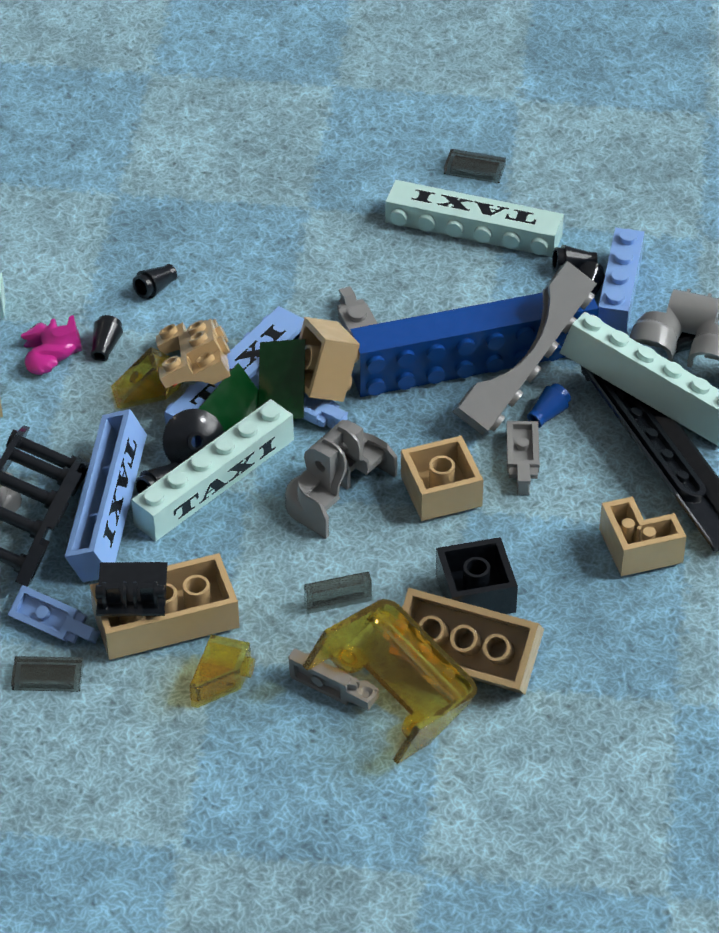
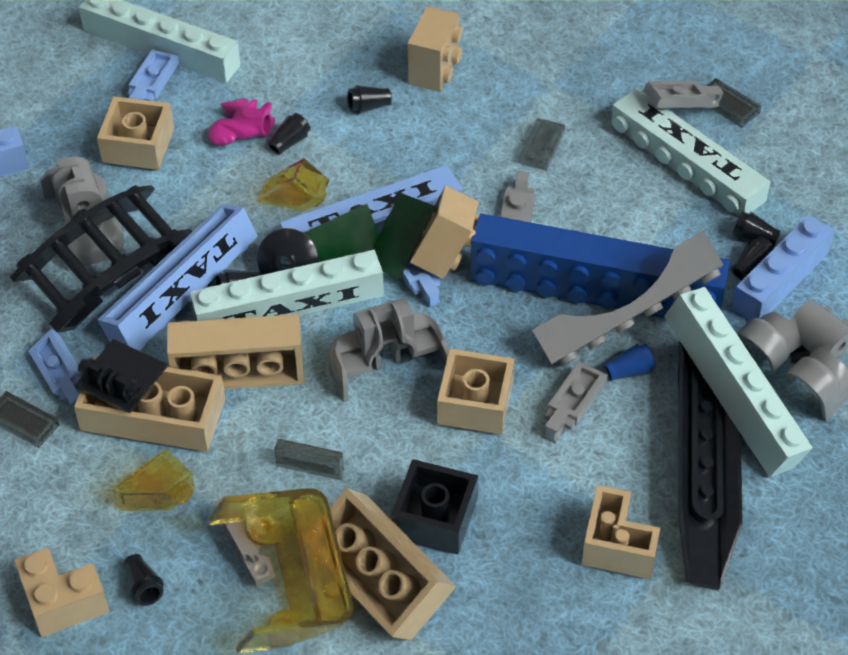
camera: 30 degrees right, 5 degrees up
(191, 213) = (434, 49): none -> tan brick
(201, 349) = (344, 183): tan bracket -> none
(205, 795) = (63, 598): none -> tan brick
(224, 522) = (242, 350): none -> tan brick
(267, 749) = (142, 580): none -> black cone
(339, 260) = (541, 144): none -> clear smoke tile
(439, 170) = (682, 94): none -> light grey hinge

